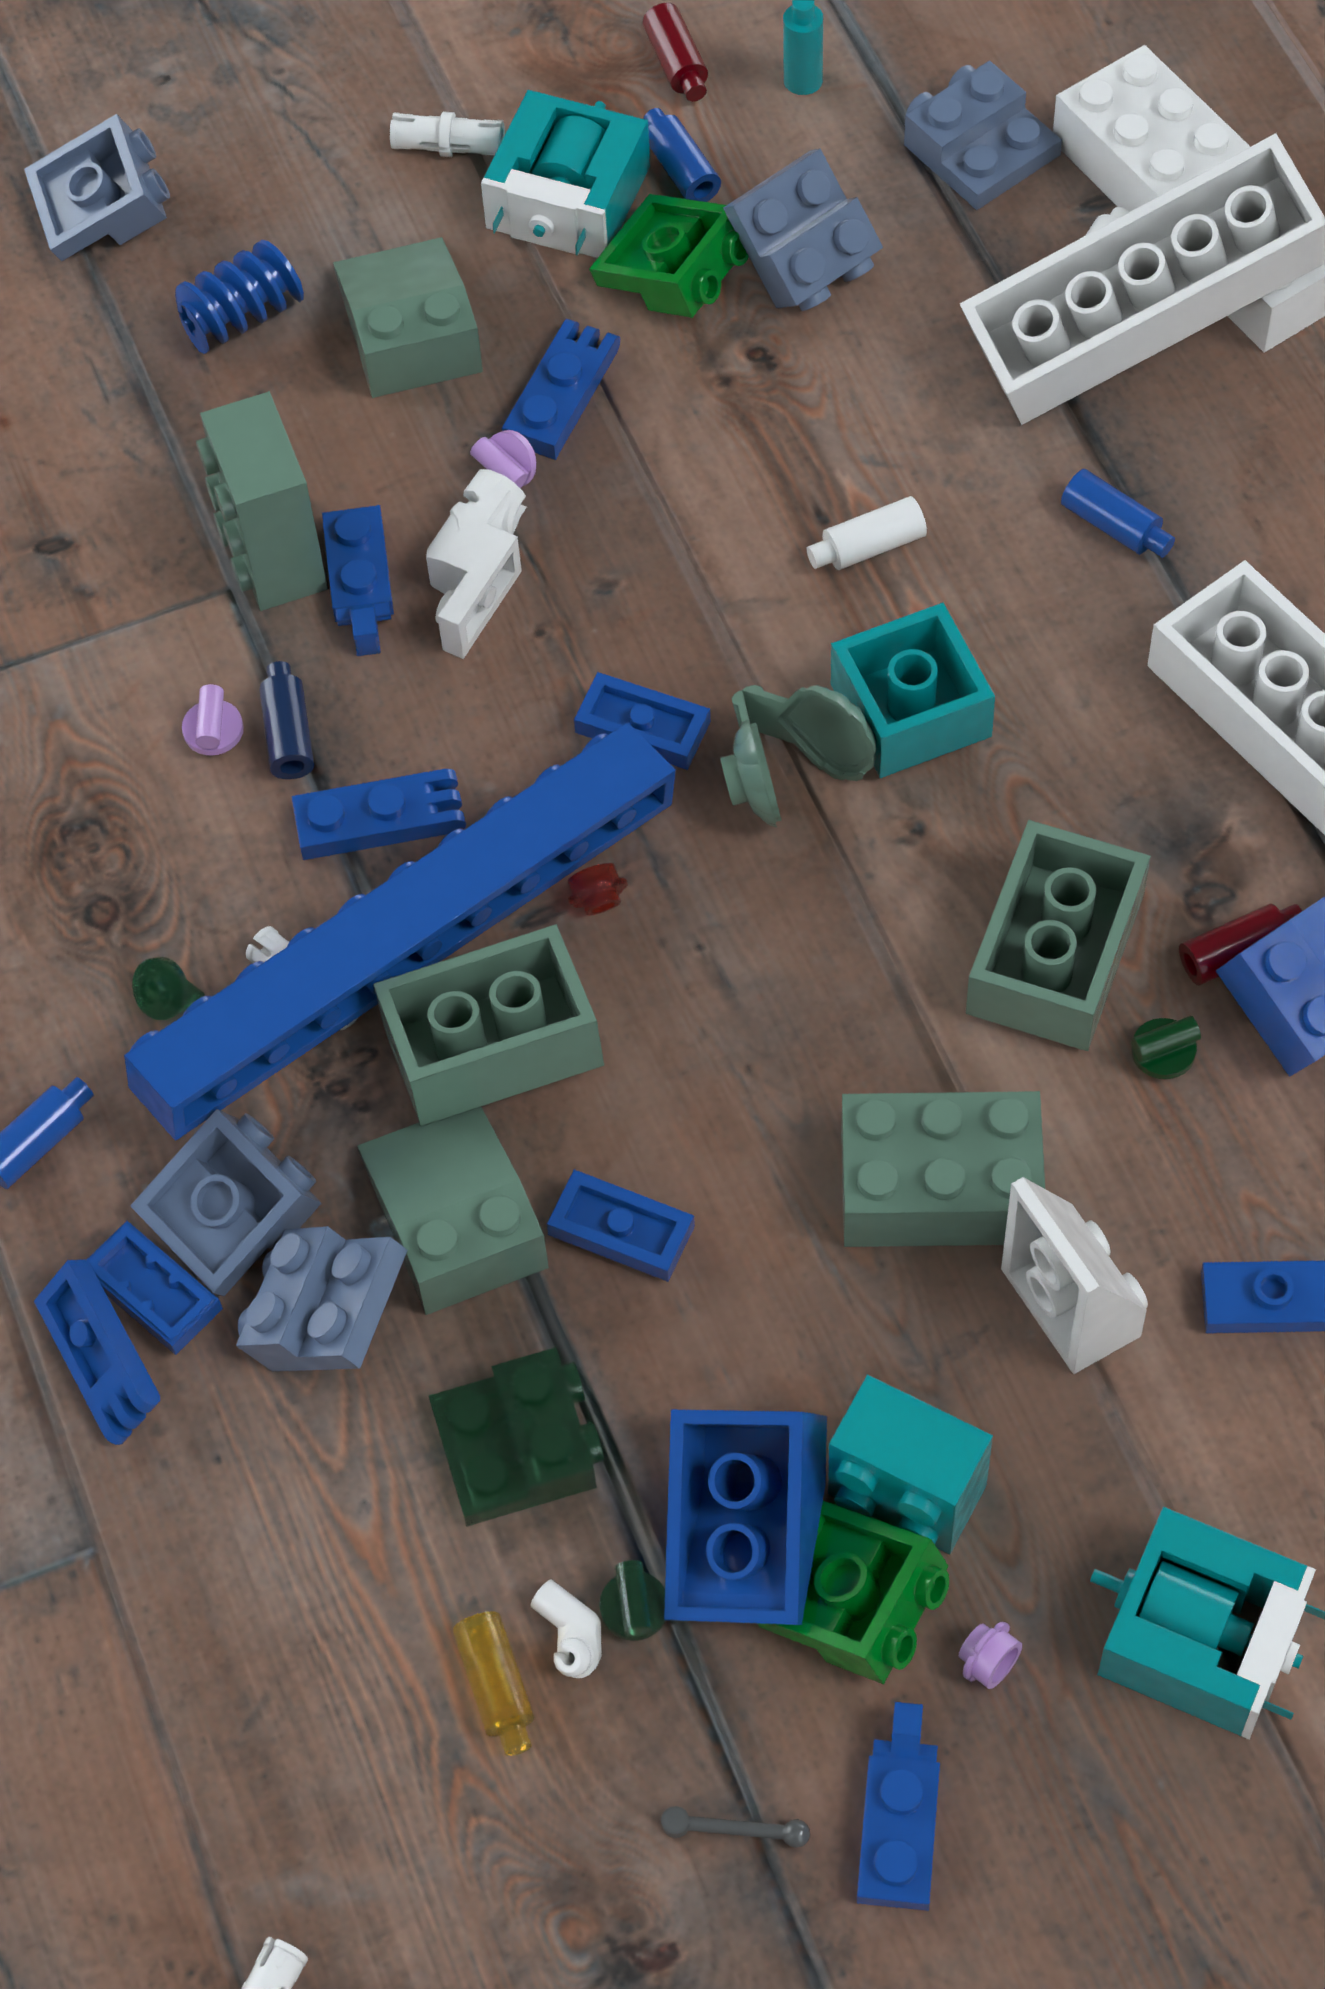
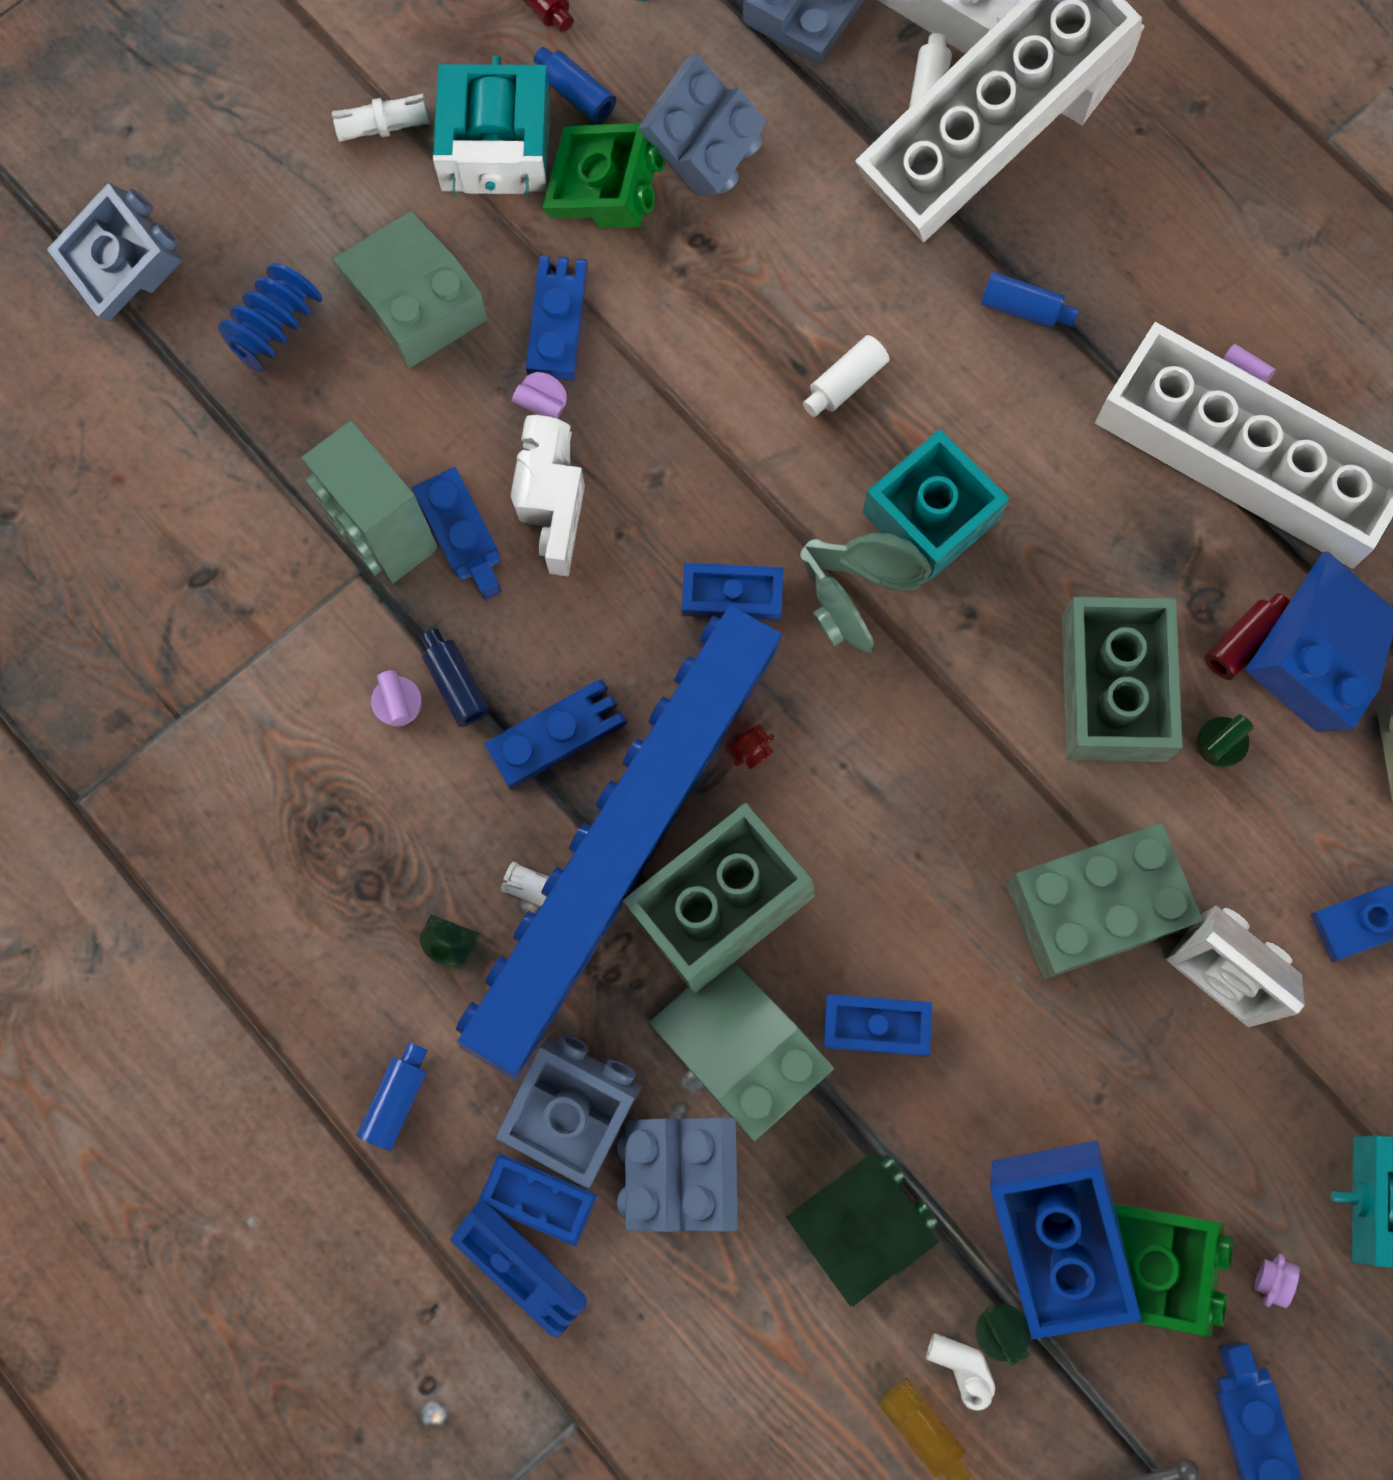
camera: 20 degrees left, 15 degrees up
(908, 1463) = (1179, 1162): teal brick -> none

